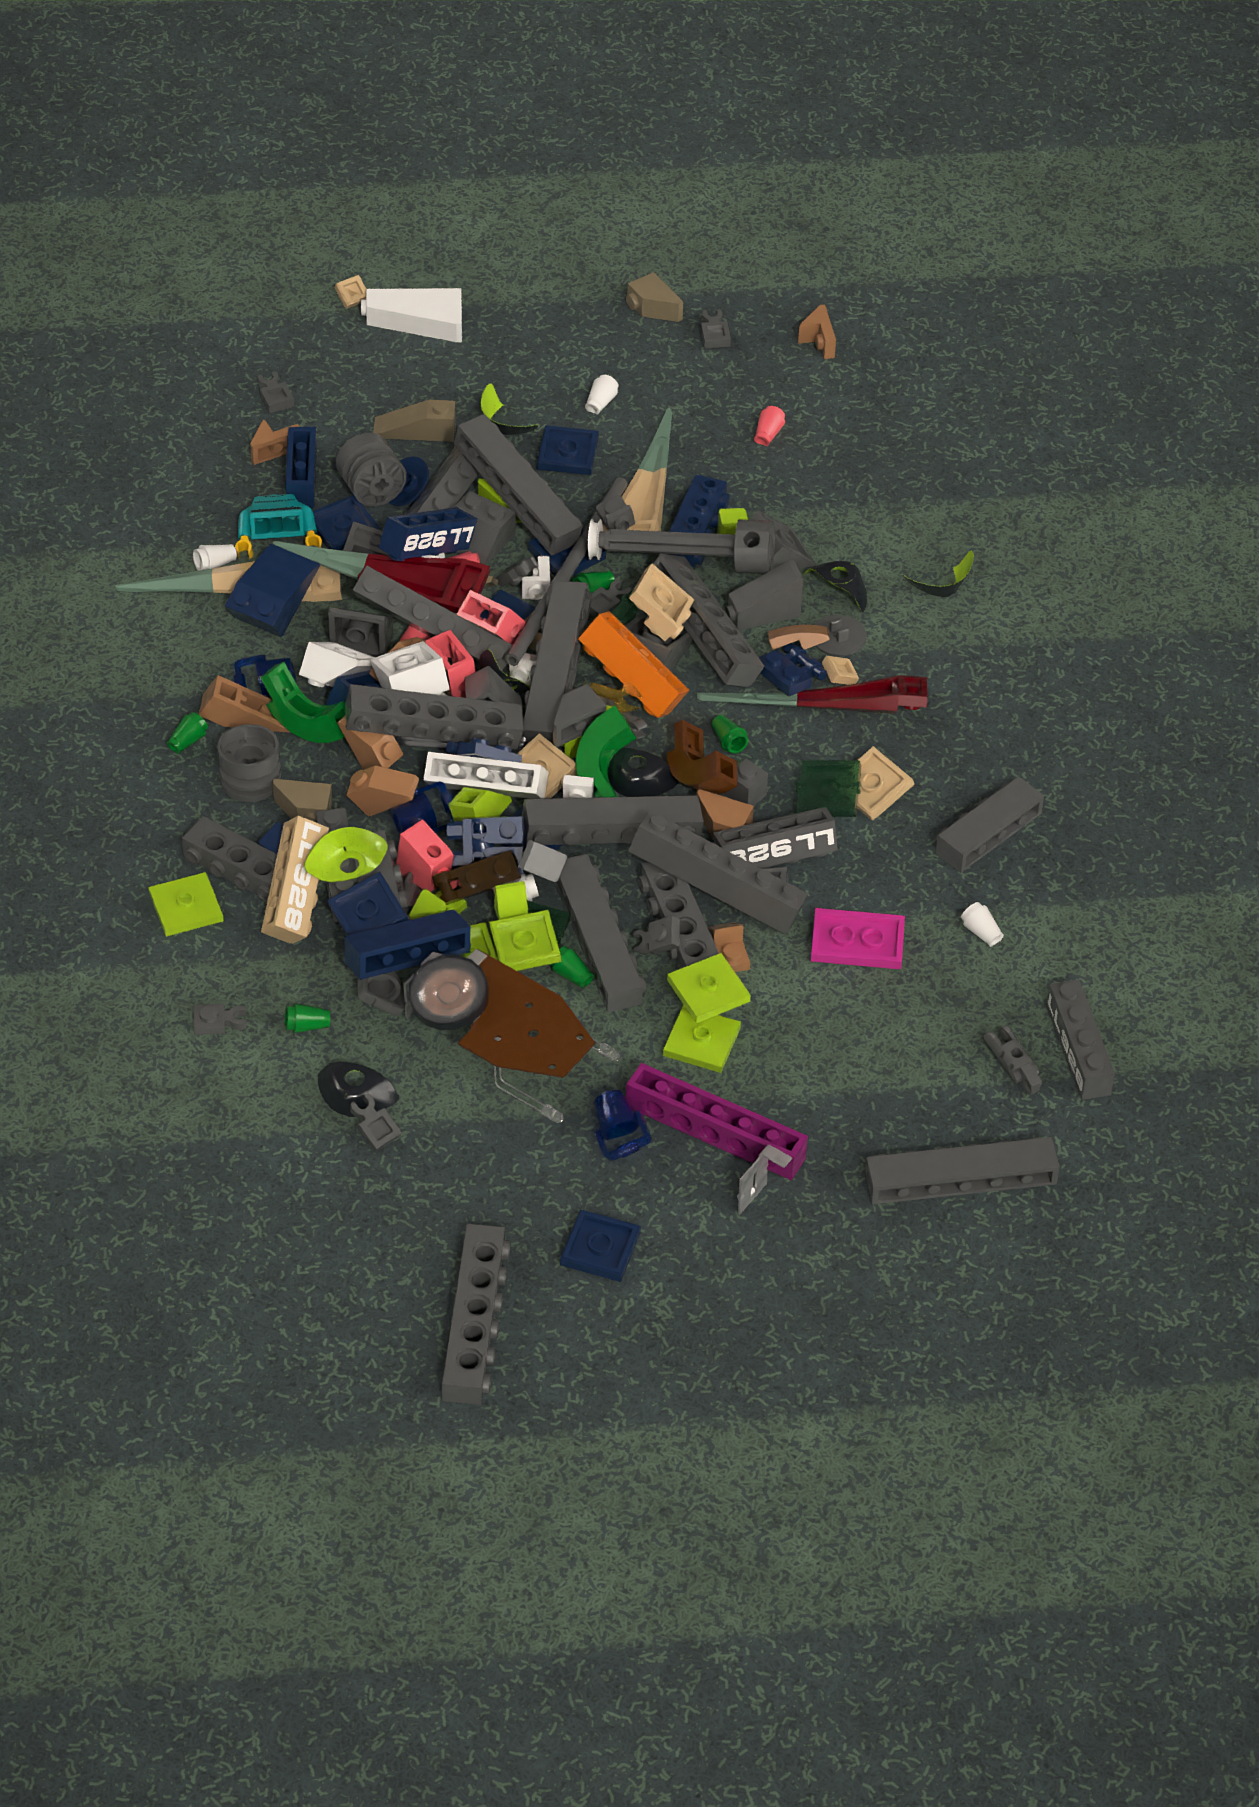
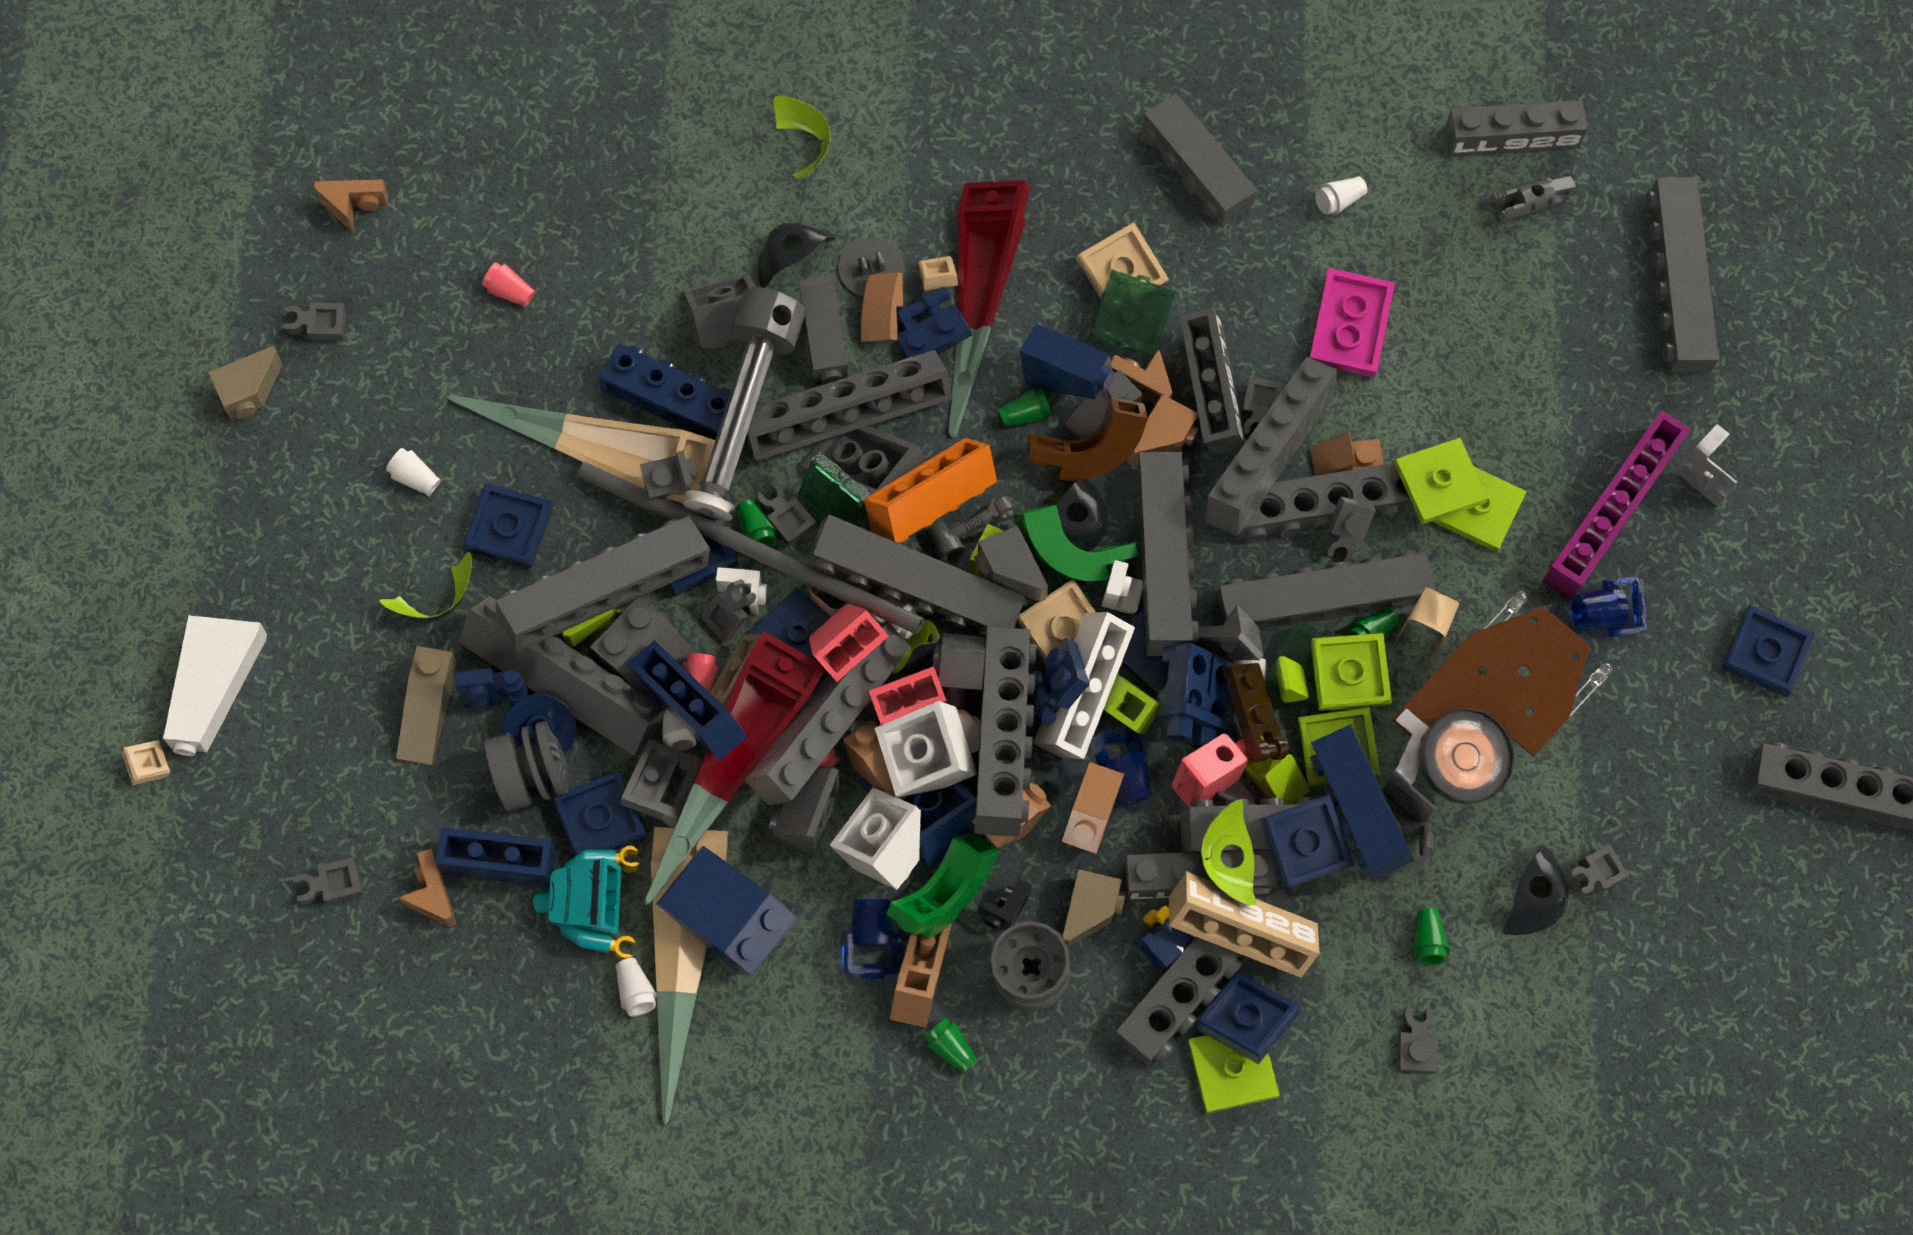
camera: 85 degrees left, 20 degrees up
(224, 899) = (1247, 1017): none -> dark blue plate
(299, 756) = (1012, 901): none -> black bracket
(429, 447) = (484, 688): none -> dark blue plate
(578, 986) = (1435, 612): none -> tan piece
(617, 695) = (969, 517): clear yellow bar -> none
(663, 602) = (850, 438): tan plate -> none
(728, 520) = (684, 349): lime slope -> none
(763, 731) = (1064, 364): none -> dark blue slope
(772, 800) = (1151, 382): none -> medium nougat slope

